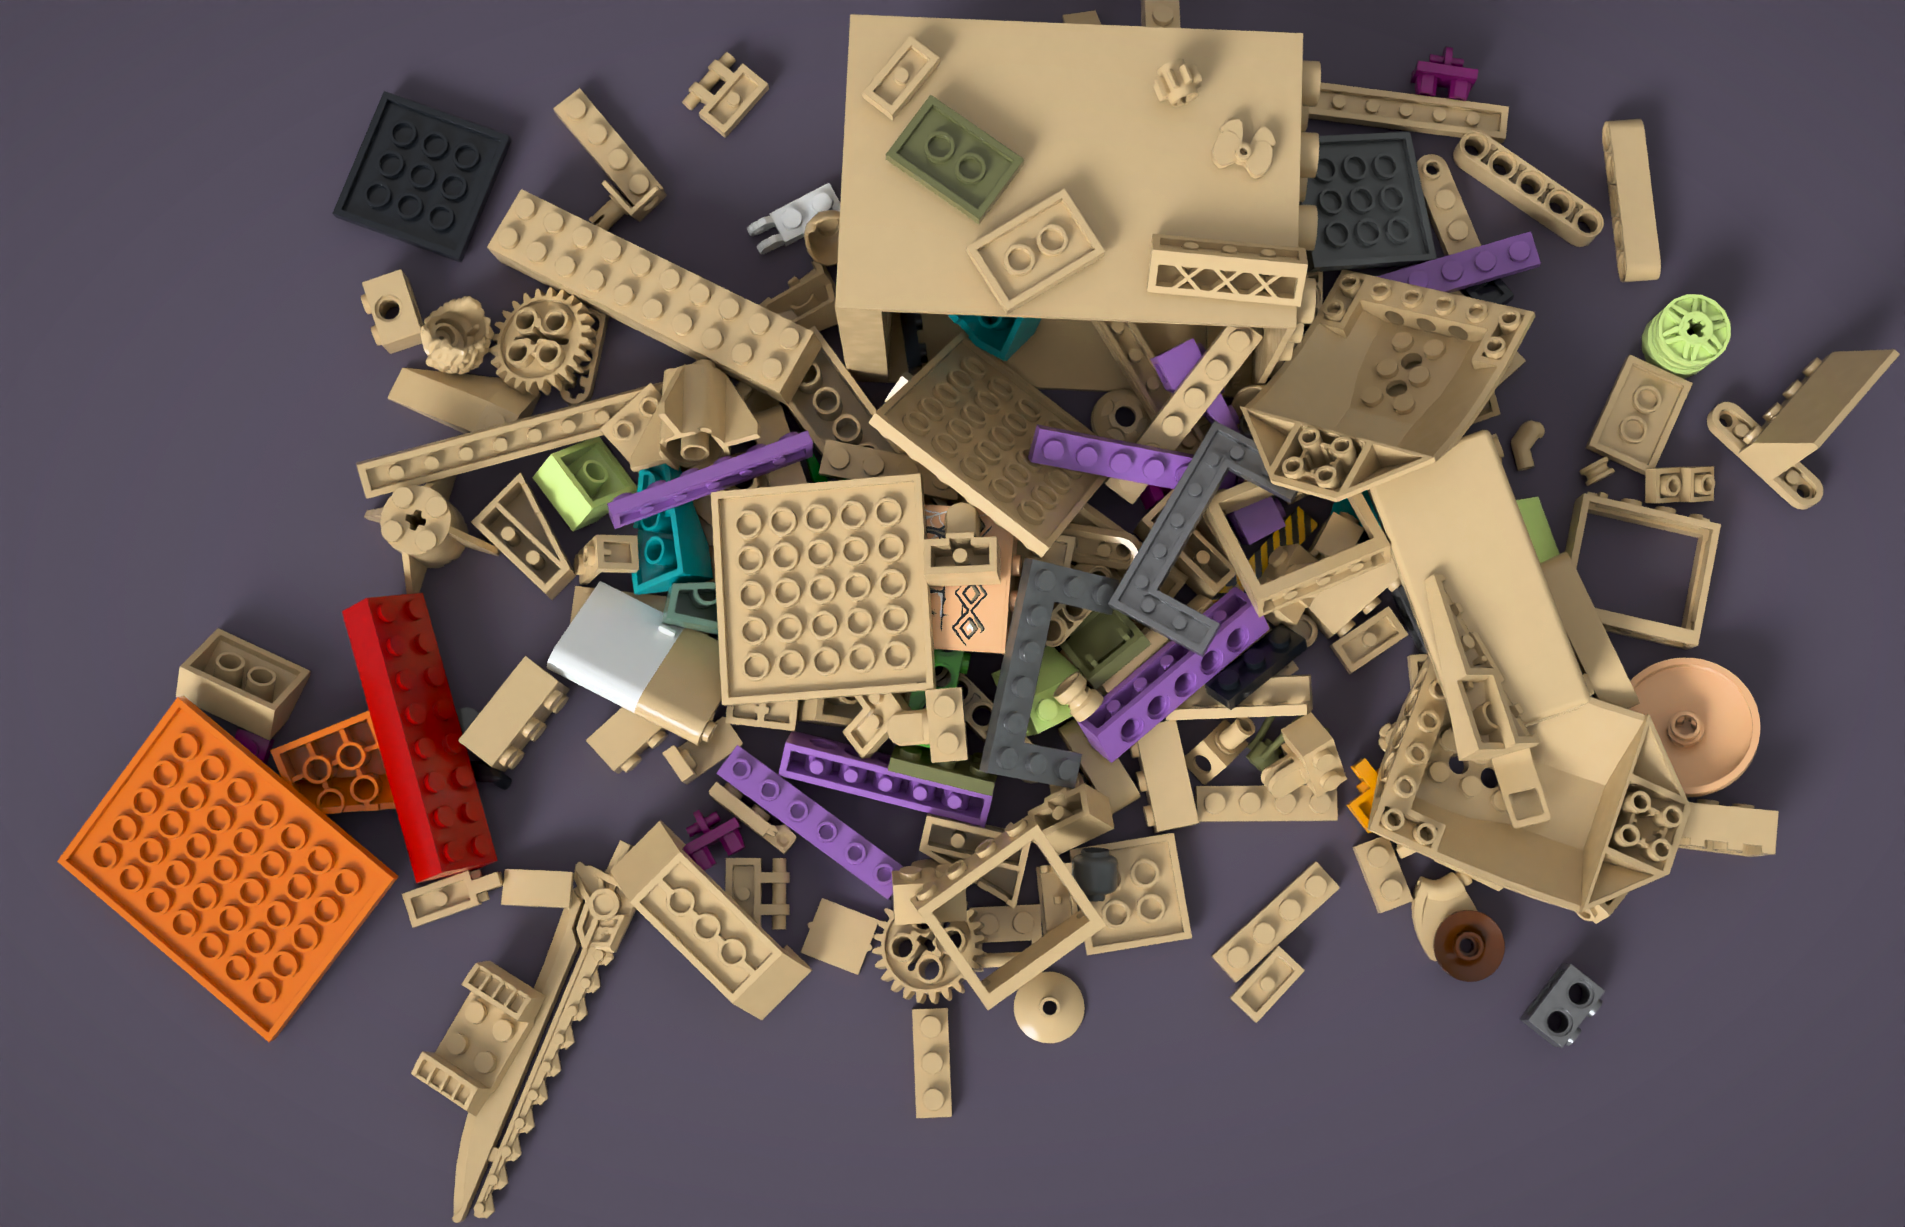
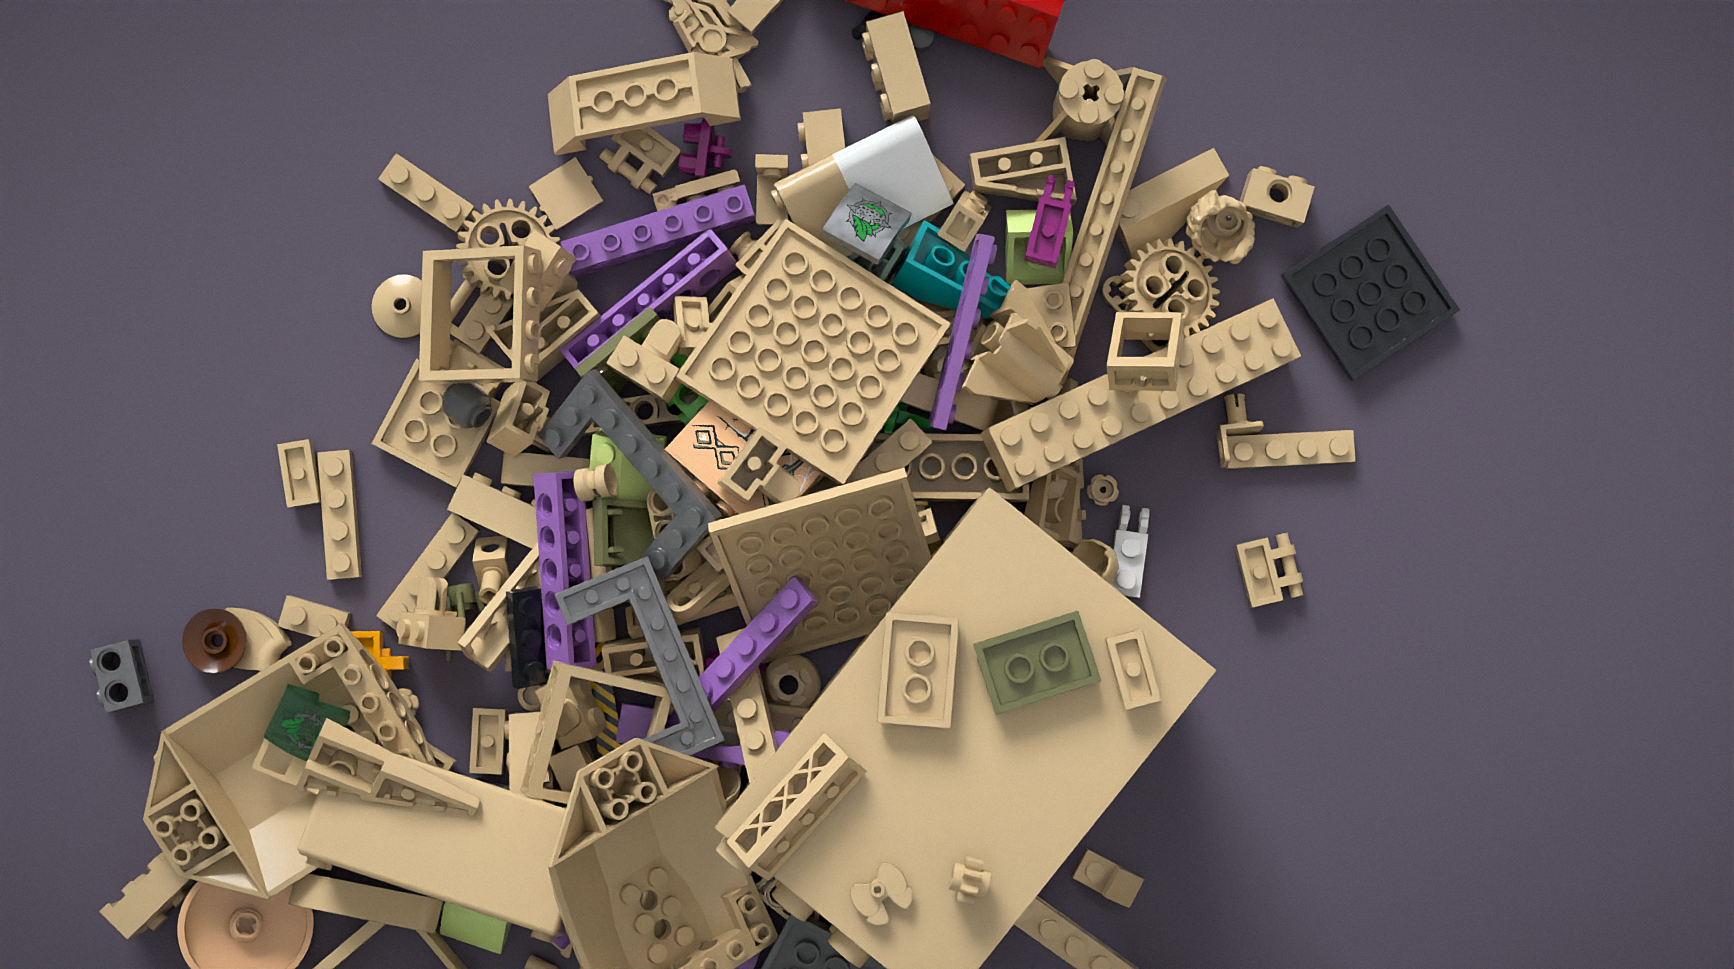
camera: 130 degrees right, 5 degrees up
(559, 475) = (1049, 226): none -> magenta hinge
(626, 281) = (1160, 372): none -> tan window
(675, 629) = (866, 223): none -> flat silver slope
(755, 270) = (1110, 494): none -> tan plate
(772, 738) = (742, 245): none -> tan bush
(1479, 796) = (300, 720): none -> clear green slope

